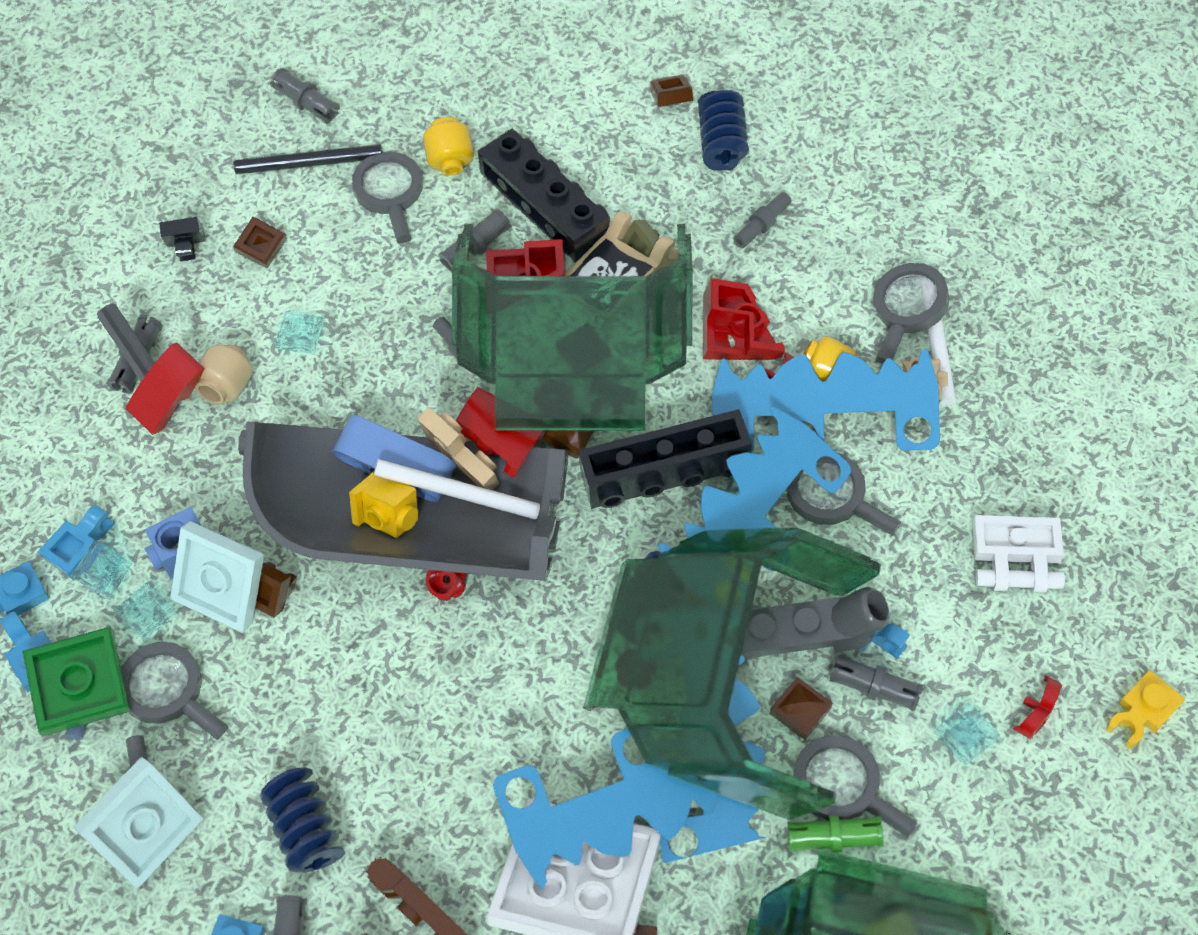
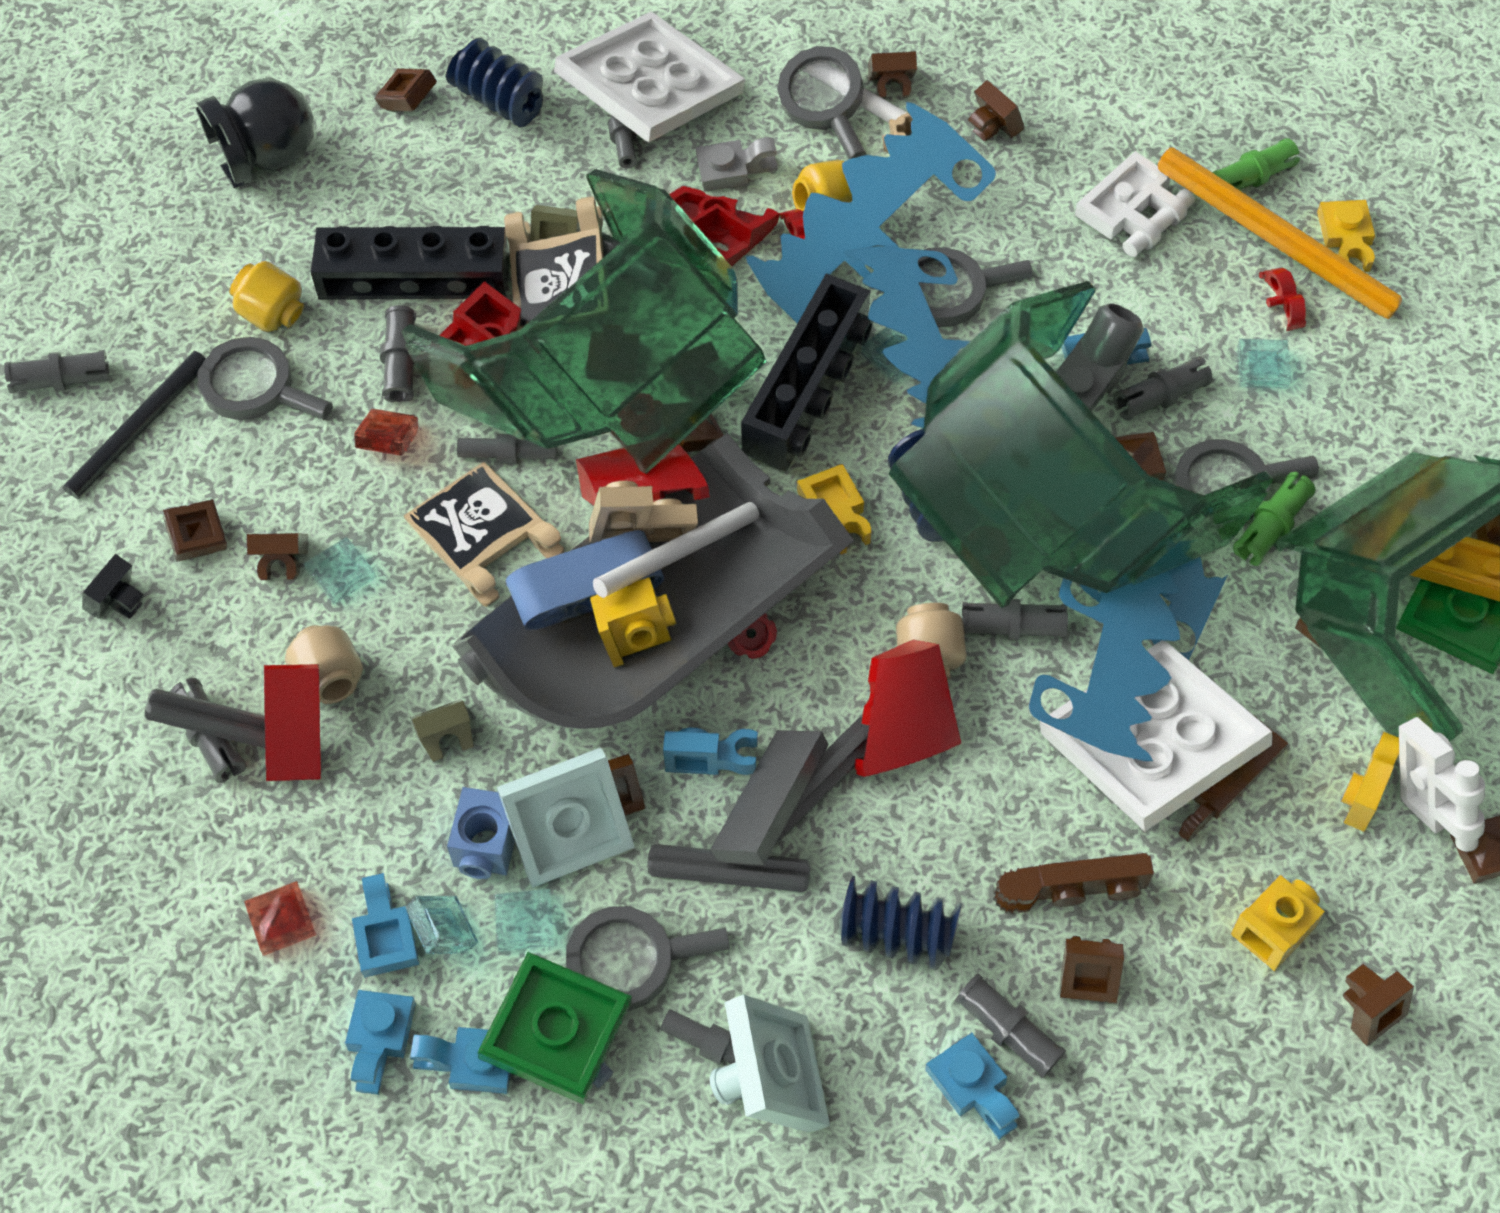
camera: 50 degrees left, 0 degrees up
(46, 486) = (280, 918): none -> clear red tile
(225, 461) = (443, 720): none -> olive tile
(270, 696) = (701, 865): none -> dark grey axle
(281, 289) = (277, 547): none -> reddish brown tile
(330, 679) = (769, 797): none -> dark grey tile
(332, 613) = (702, 753): none -> dark azure plate
(377, 699) = (832, 768): none -> dark grey axle
(394, 374) = (476, 524): none -> flag
(413, 278) = (386, 432): none -> clear red tile
(458, 710) = (907, 708): none -> red slope
(530, 687) = (936, 625): none -> tan head
(556, 43) = (259, 126): none -> black tile
(587, 552) = (842, 497): none -> yellow plate
(594, 724) = (1015, 619): none -> dark grey pin
(799, 295) = (728, 165): none -> light grey plate
(813, 200) = (649, 76): none -> white plate
(971, 325) = (892, 68): none -> reddish brown tile
(1000, 411) = (995, 113): none -> reddish brown tile
(1087, 664) = (1279, 233): none -> light orange axle
(1133, 605) = (1257, 166): none -> bright green pin

